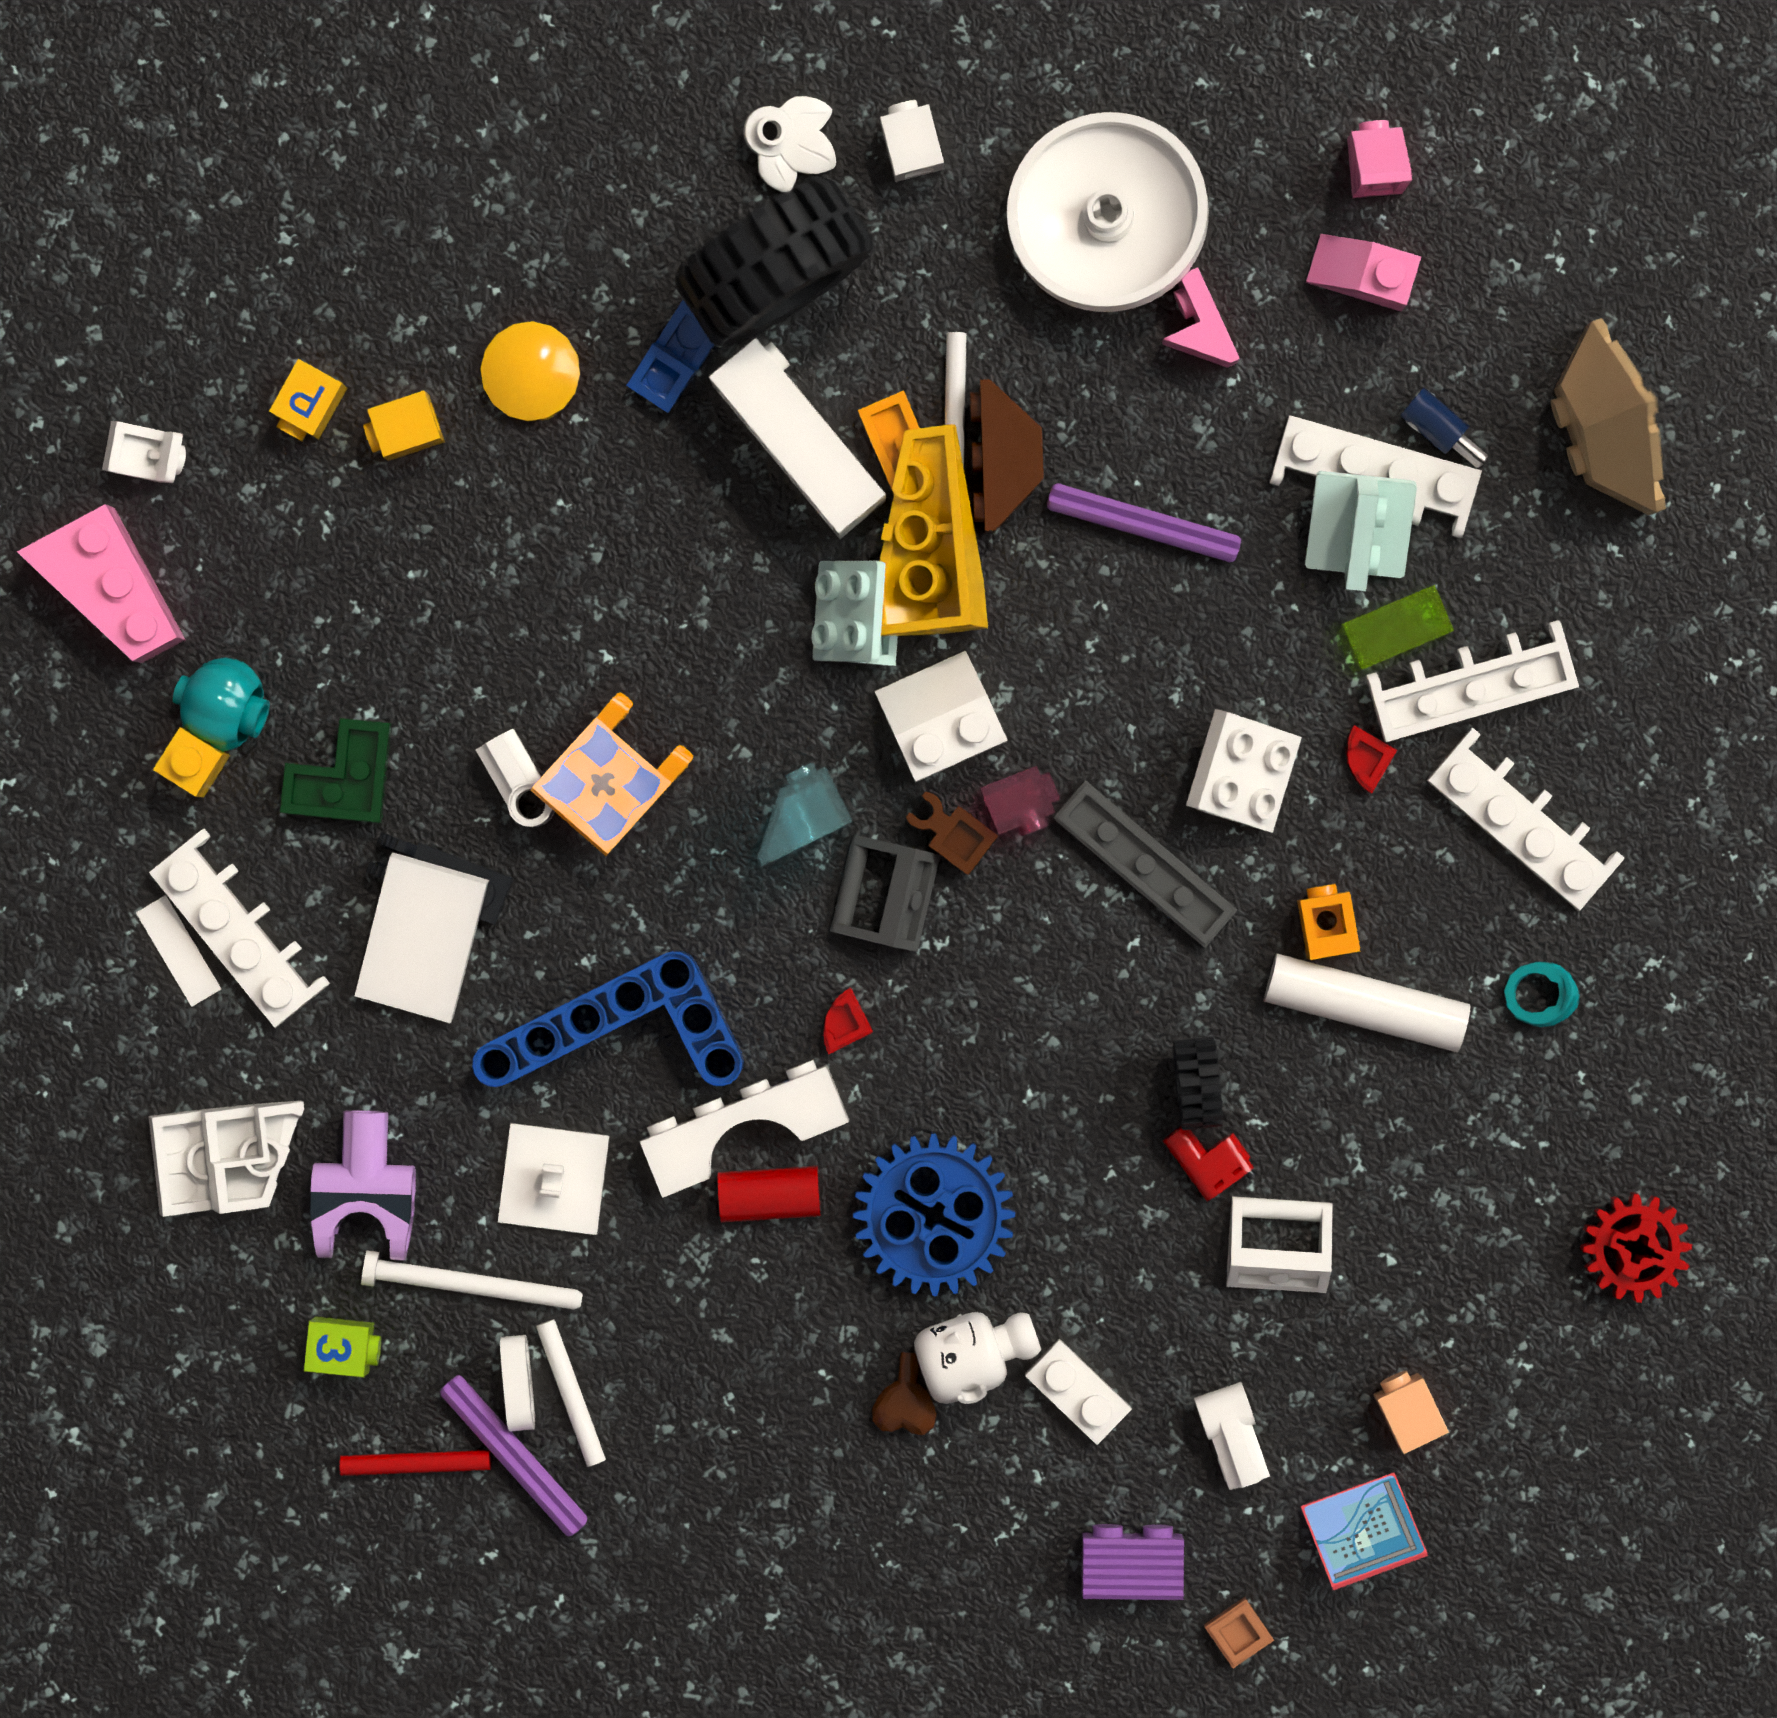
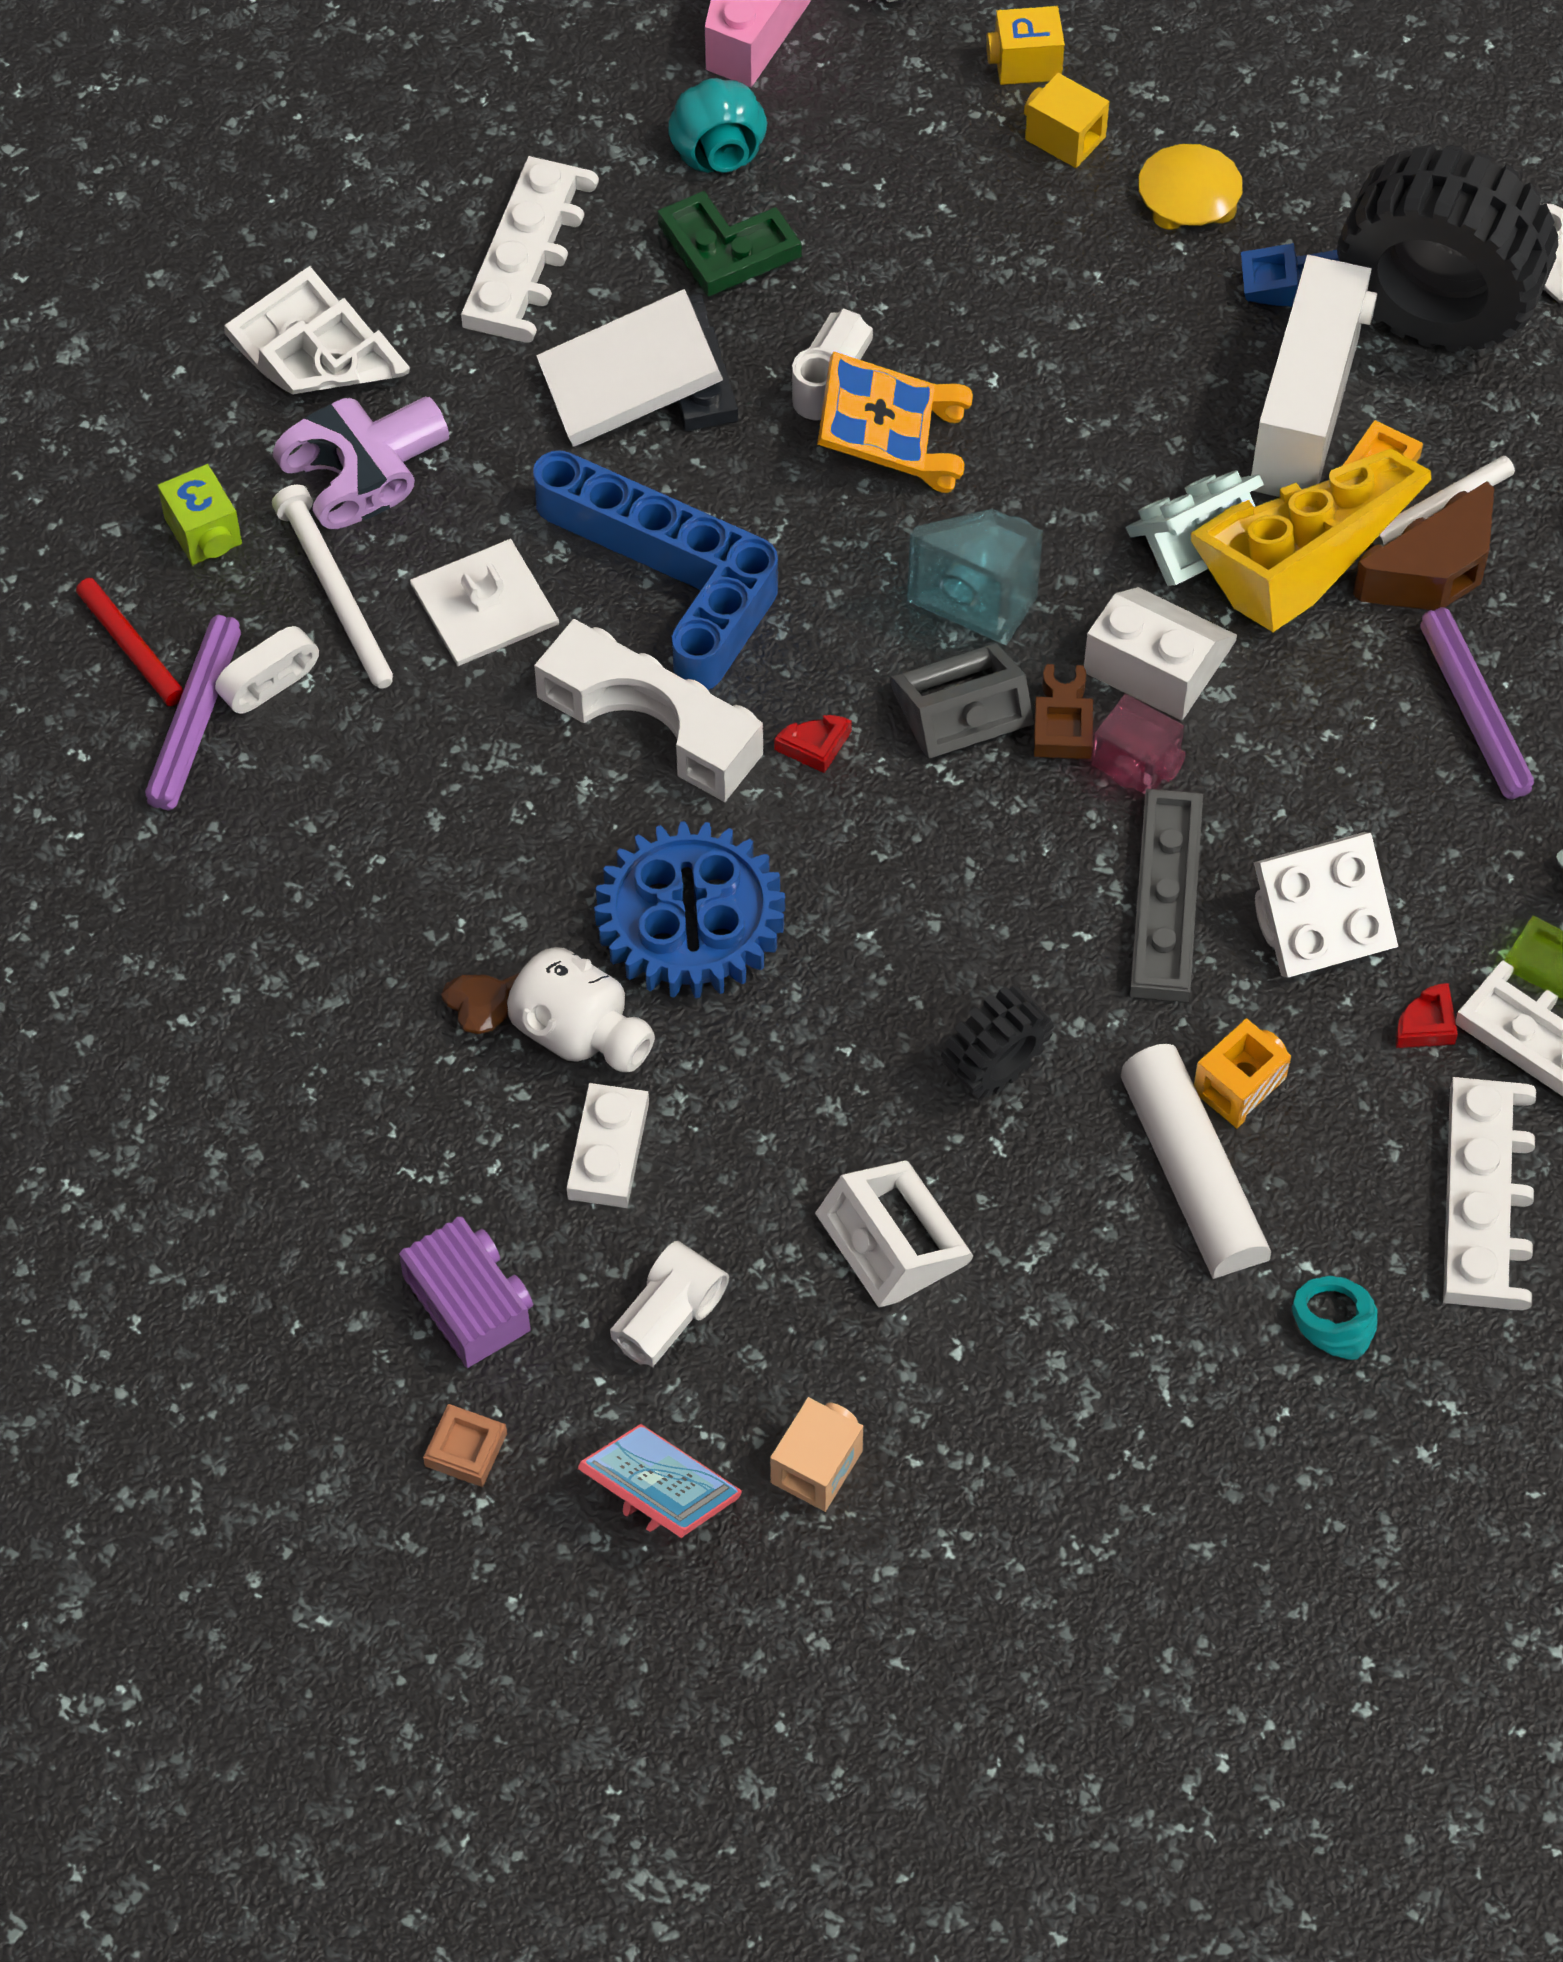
camera: 55 degrees right, 30 degrees down
(178, 950) = (474, 223): white sticker -> none
(191, 763) = (650, 128): yellow brick -> none
(570, 1392) = (288, 725): white bar -> none
(768, 1194) = (600, 769): red brick -> none
(1212, 1168) = (924, 1125): red piece -> none
(1629, 1270) = (1136, 1581): red gear -> none

